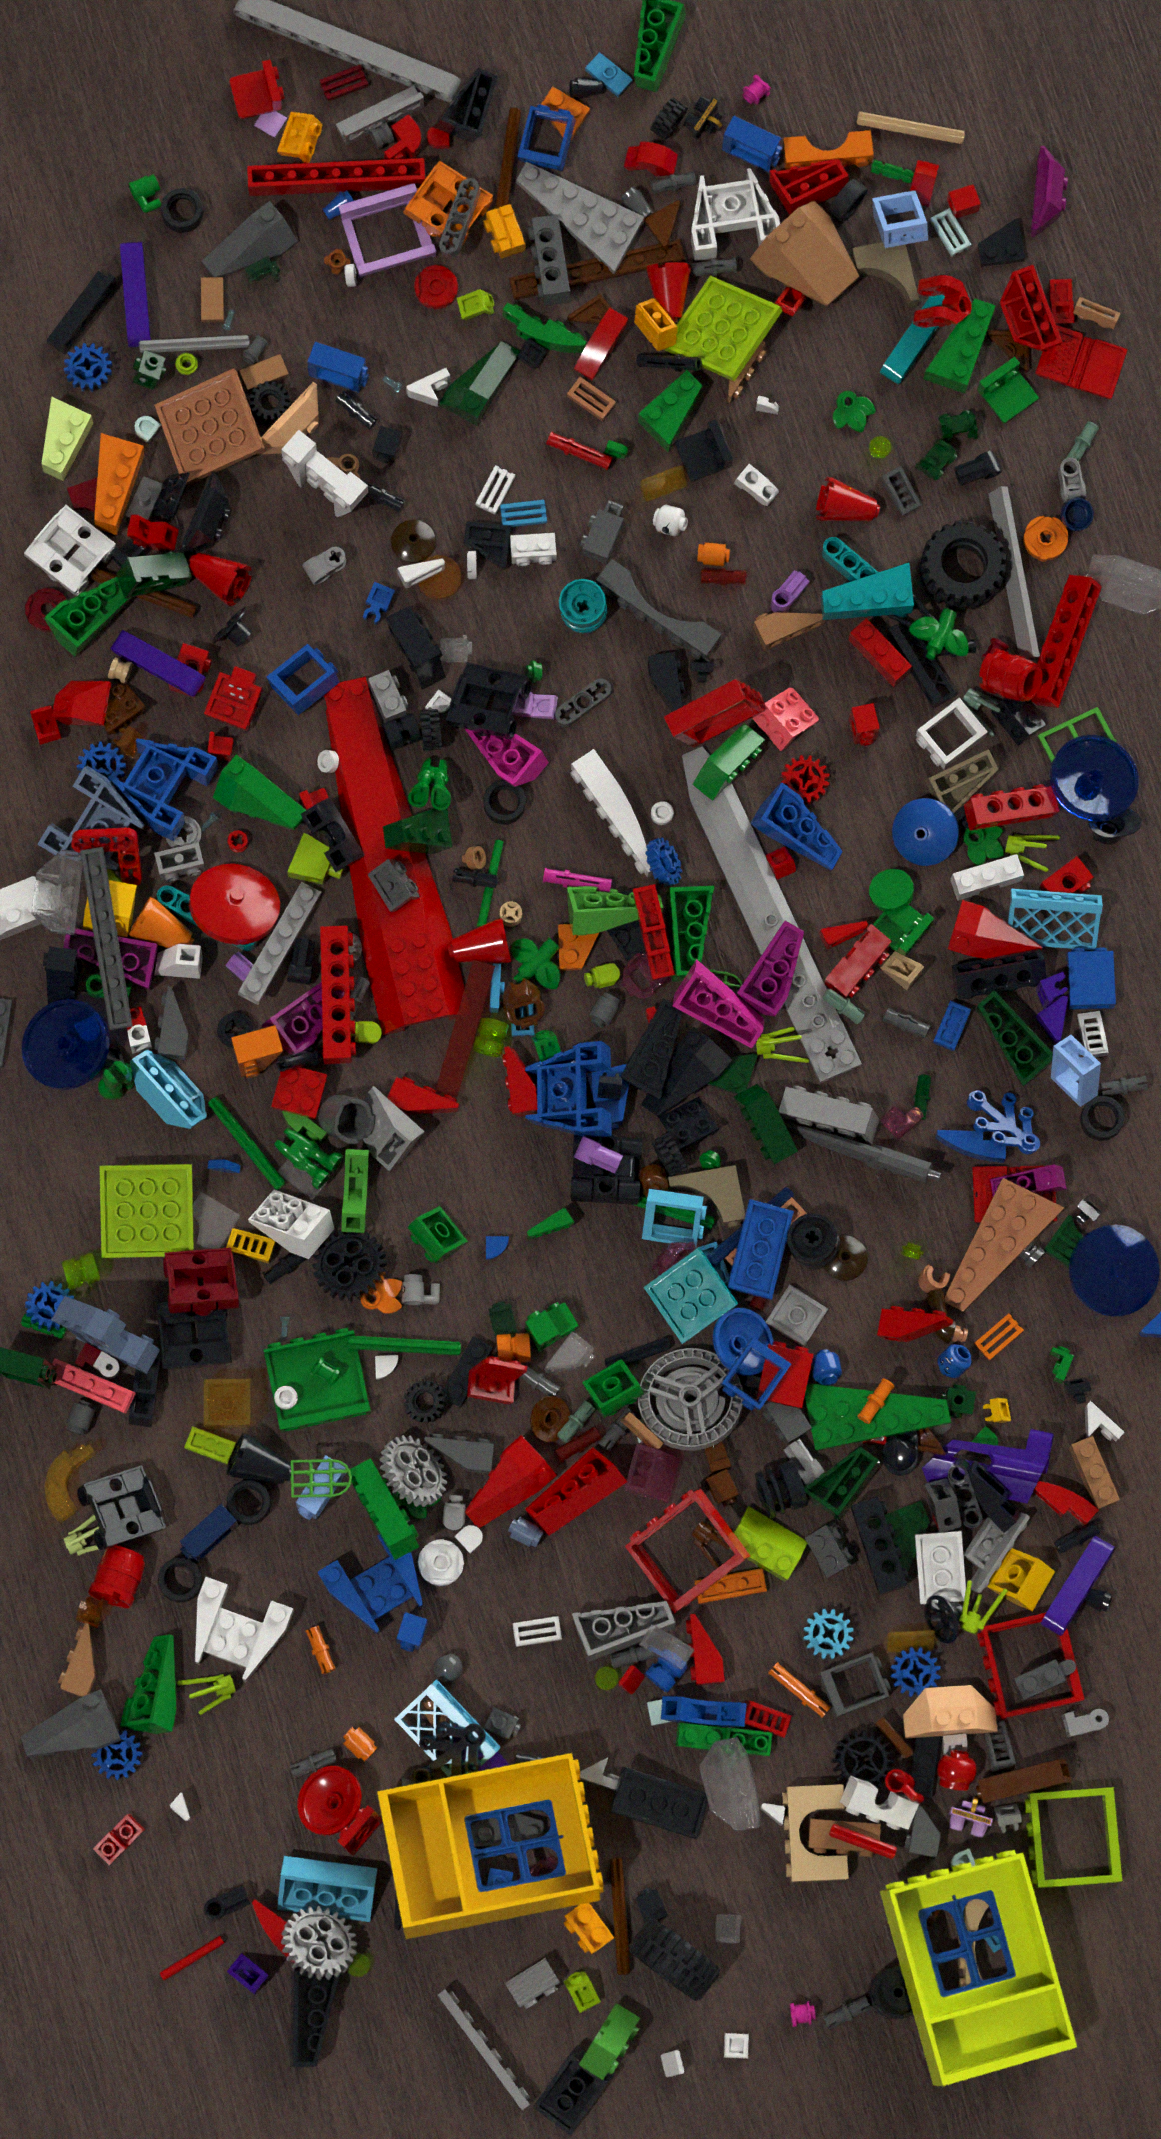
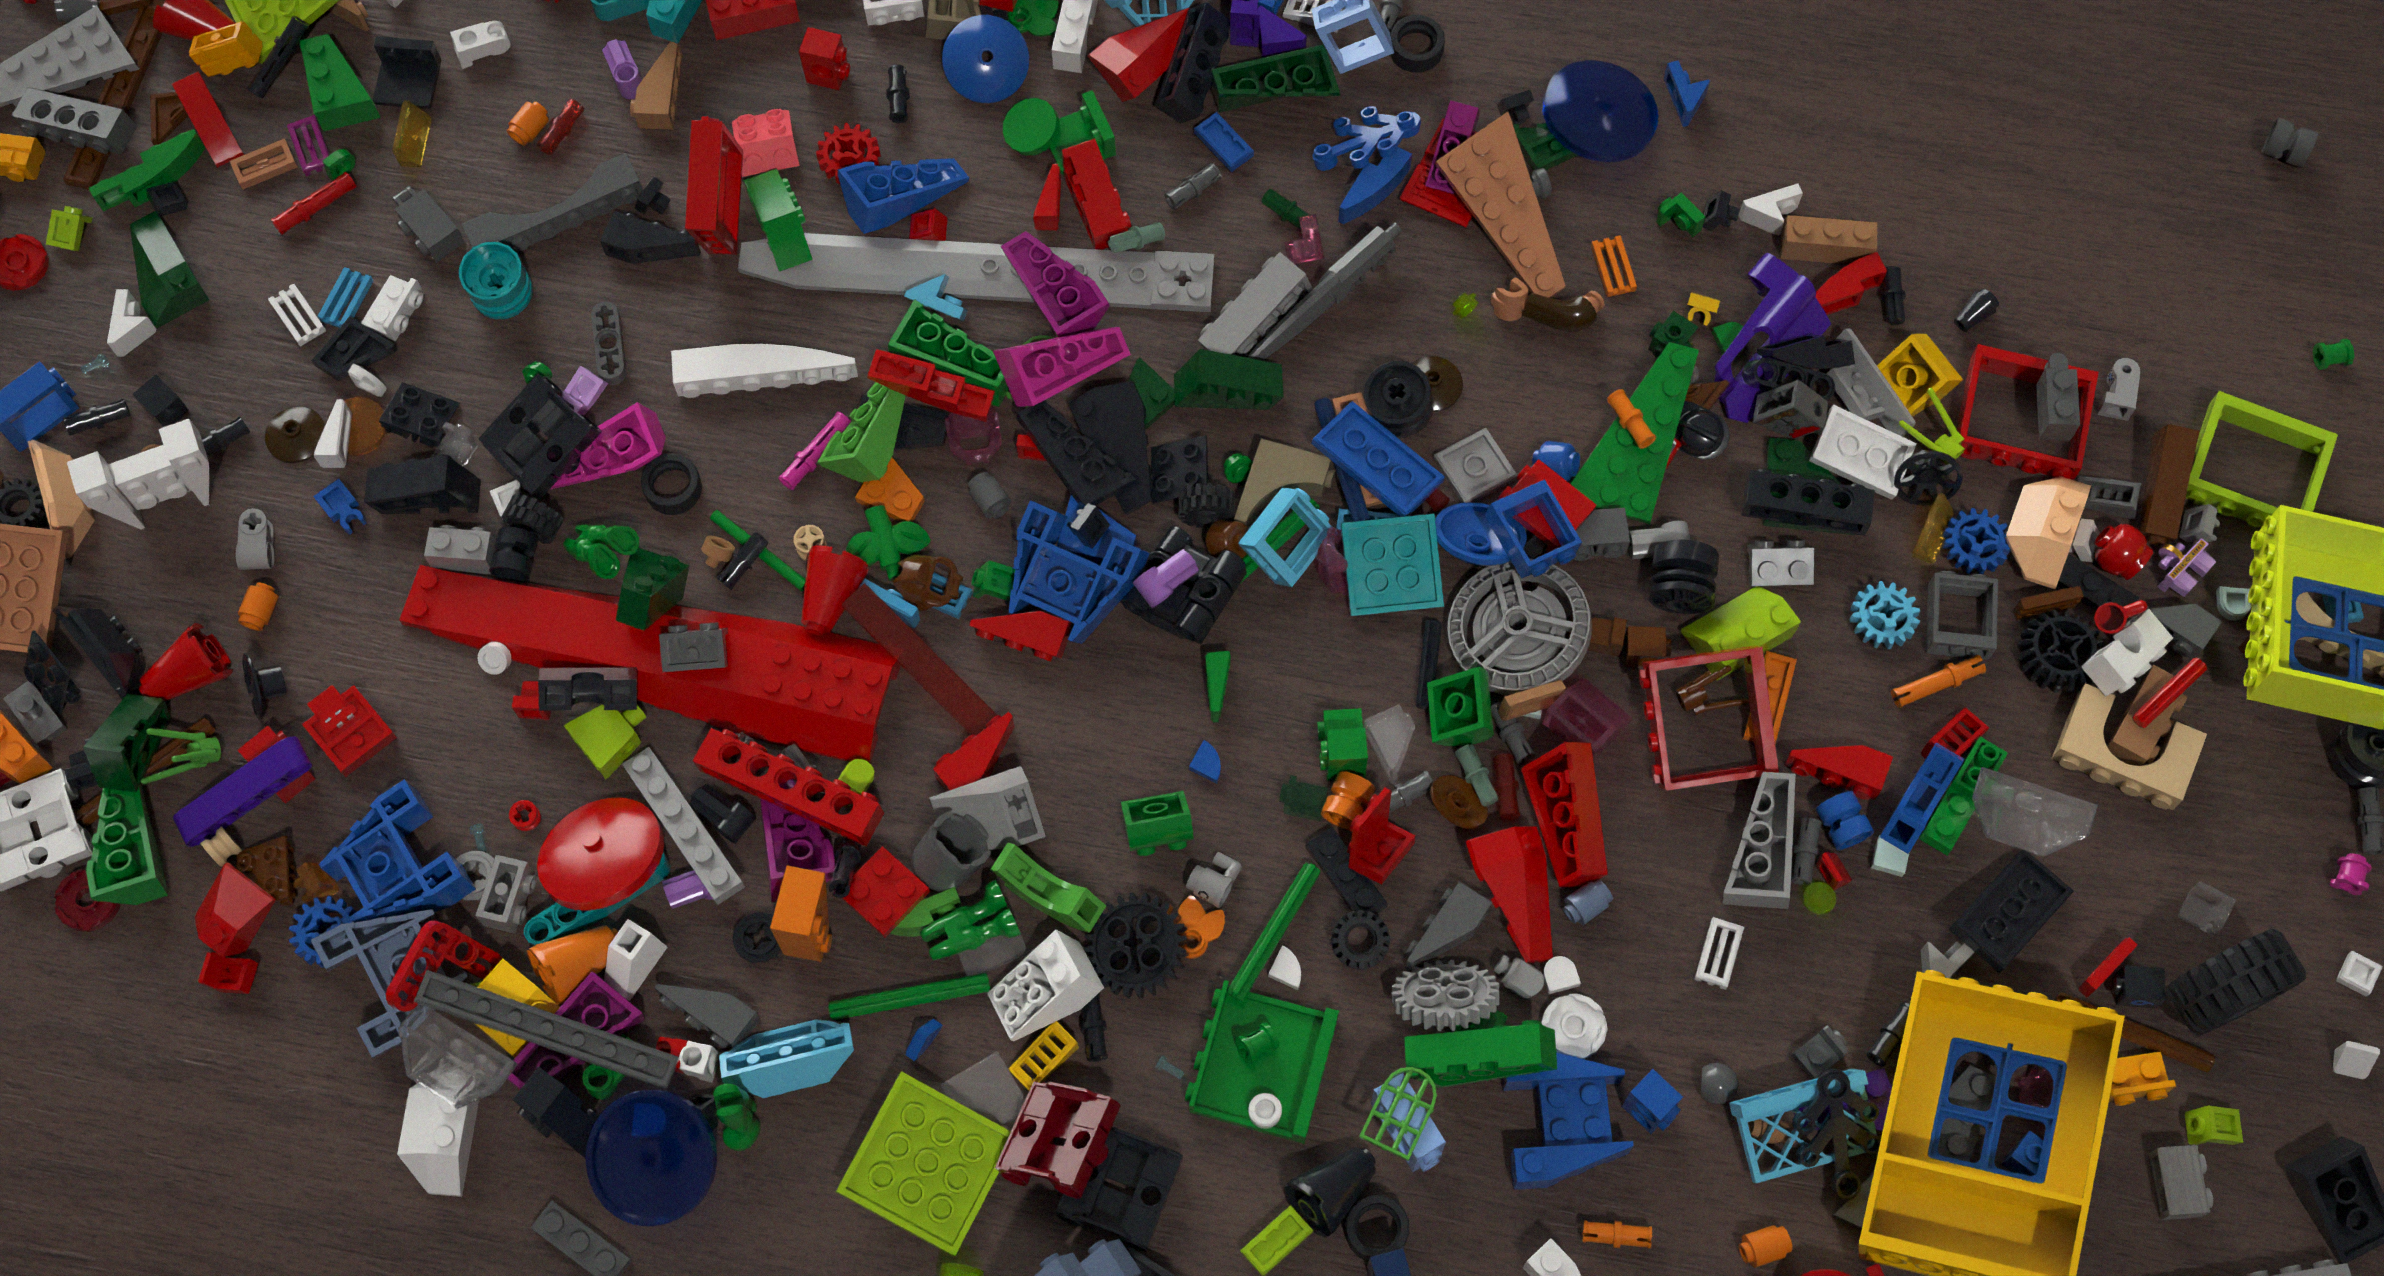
camera: 55 degrees left, 10 degrees down
(152, 535) = (81, 720): red brick -> none
(172, 619) = (200, 752): none -> bright green plant
(220, 747) = (395, 772): red panel -> none
(227, 1403) = (1235, 1188): clear yellow brick -> none
(249, 792) = (475, 763): green wedge -> none
(284, 593) = (257, 606): none -> orange brick
(315, 690) = (386, 660): blue window -> none
(466, 612) = (418, 414): none -> black hinge
(491, 1037) = (949, 639): clear neon green wheel -> none
(602, 976) = (946, 478): lime arm -> none
(609, 434) = (317, 164): none -> magenta tile
(610, 2042) = (2308, 1117): bright green wedge -> none
(653, 1880) = (2109, 964): none -> red tile
(662, 813) = (792, 323): white tile -> none
(663, 862) = (852, 340): blue gear -> none
(666, 1647) = (1827, 795): clear slope -> none
(670, 520) = (459, 147): white head -> none
(724, 895) = (930, 296): none -> medium azure slope
(766, 1044) = (1135, 338): lime plant -> none
(774, 1811) = (2083, 781): white slope -> none
(843, 1483) = (1709, 505): dark green wedge -> none
(869, 786) = (898, 94): none -> black pin
(902, 969) = (1131, 158): tan slope -> none
(906, 1326) = (1554, 347): red slope -> none
(954, 1361) = (1621, 320): blue head -> none
(1077, 1585) = (1959, 314): dark purple beam -> none

